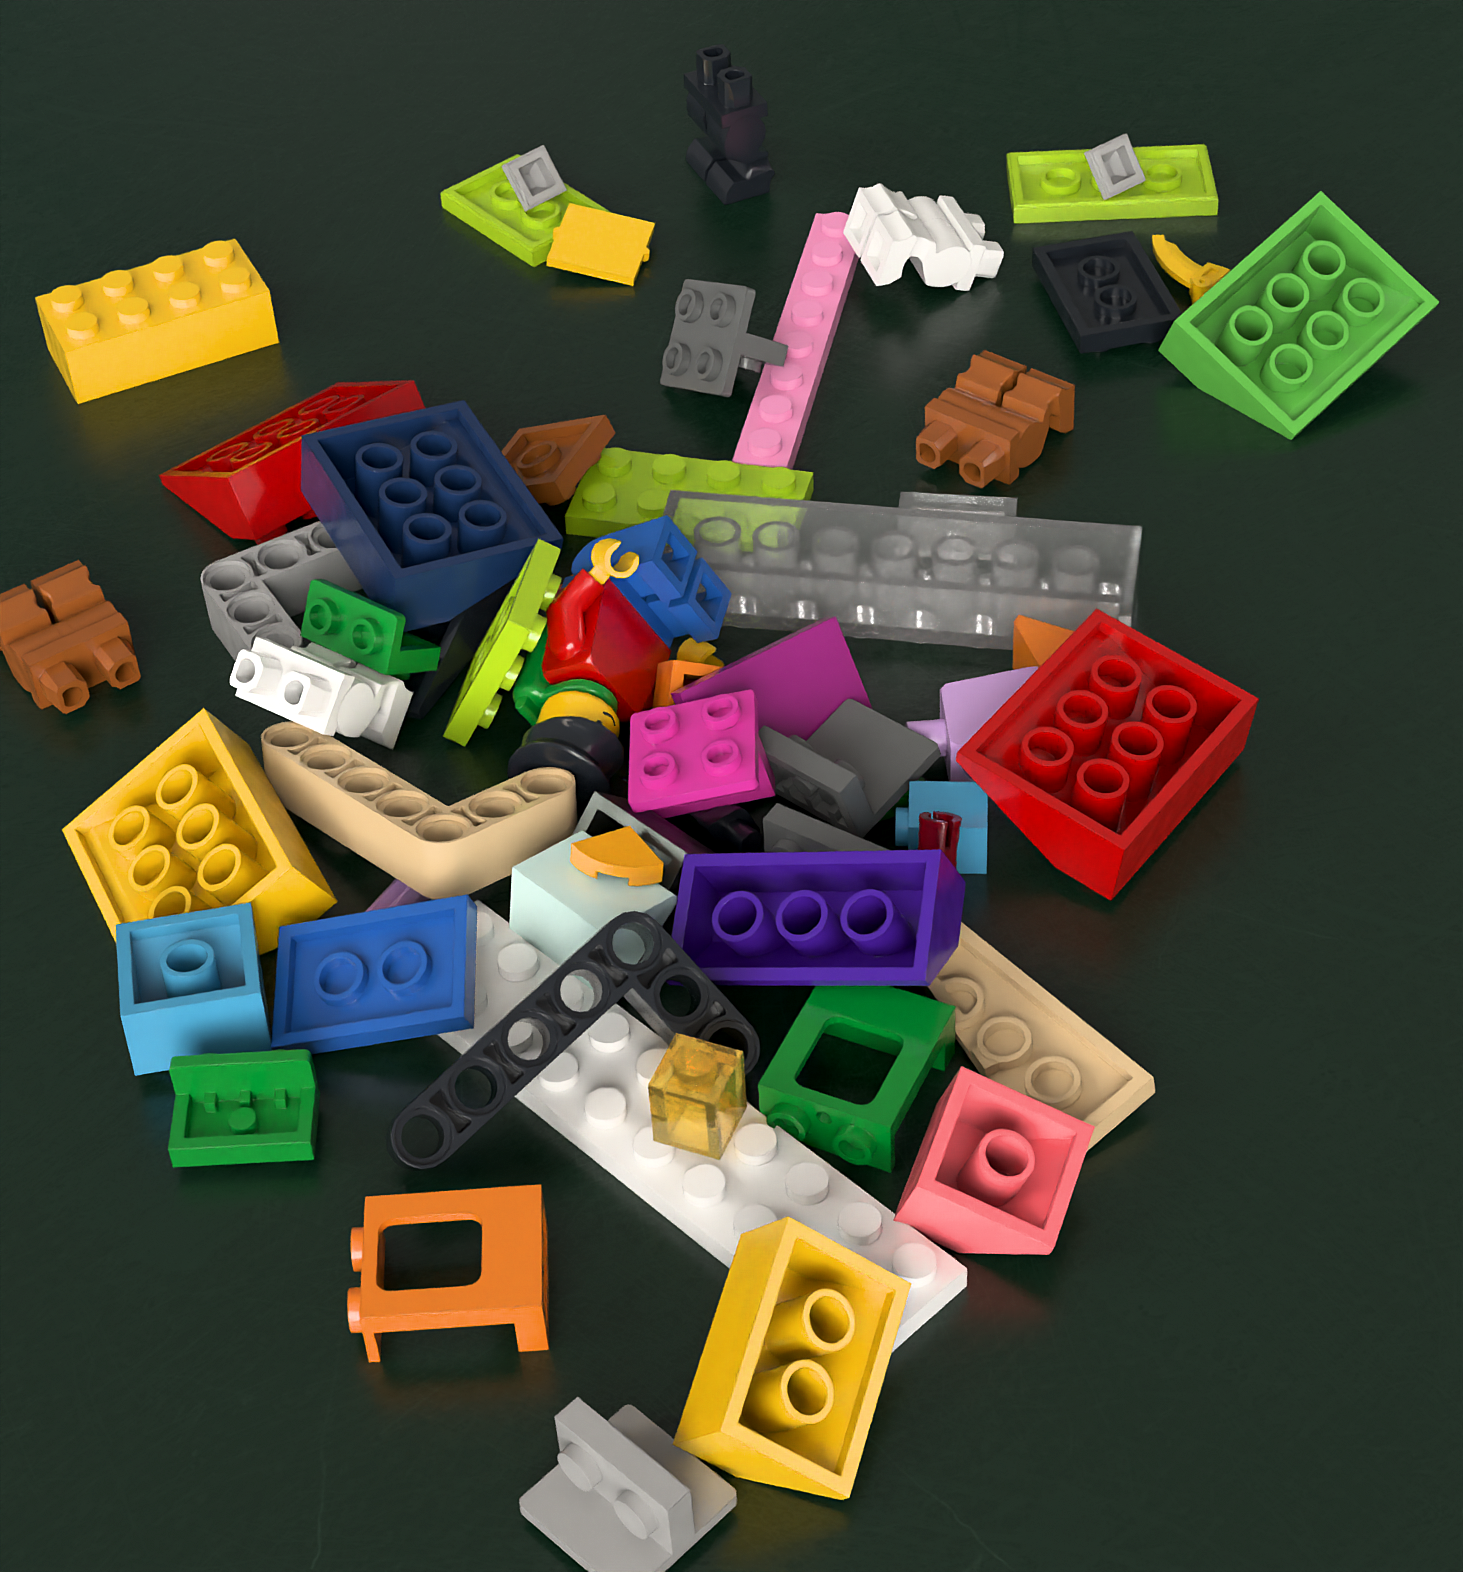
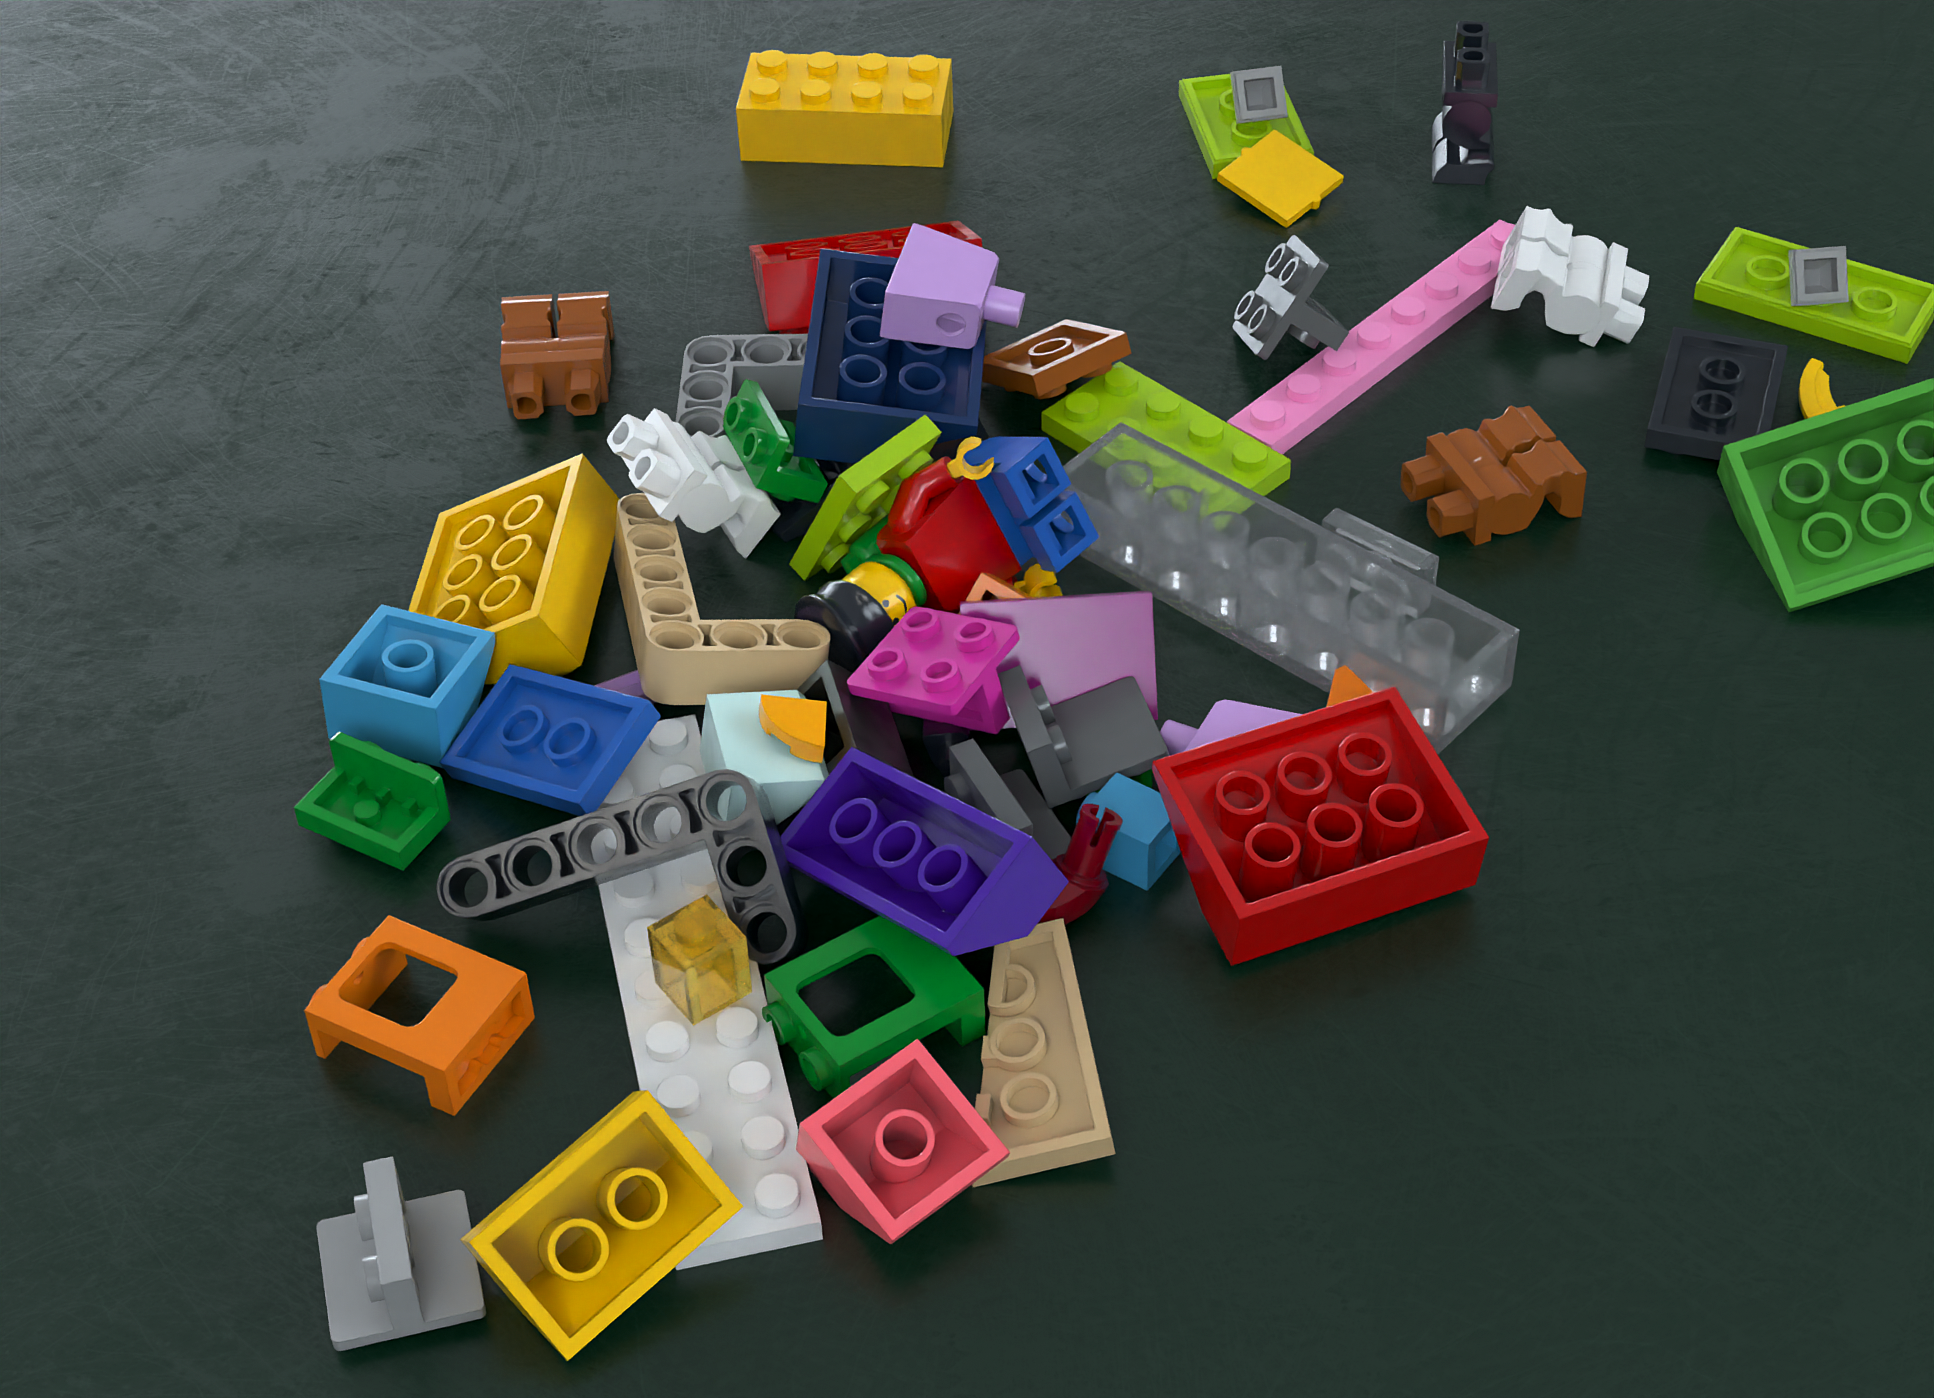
camera: 30 degrees right, 0 degrees up
(455, 429) = (945, 292): none -> lavender torso

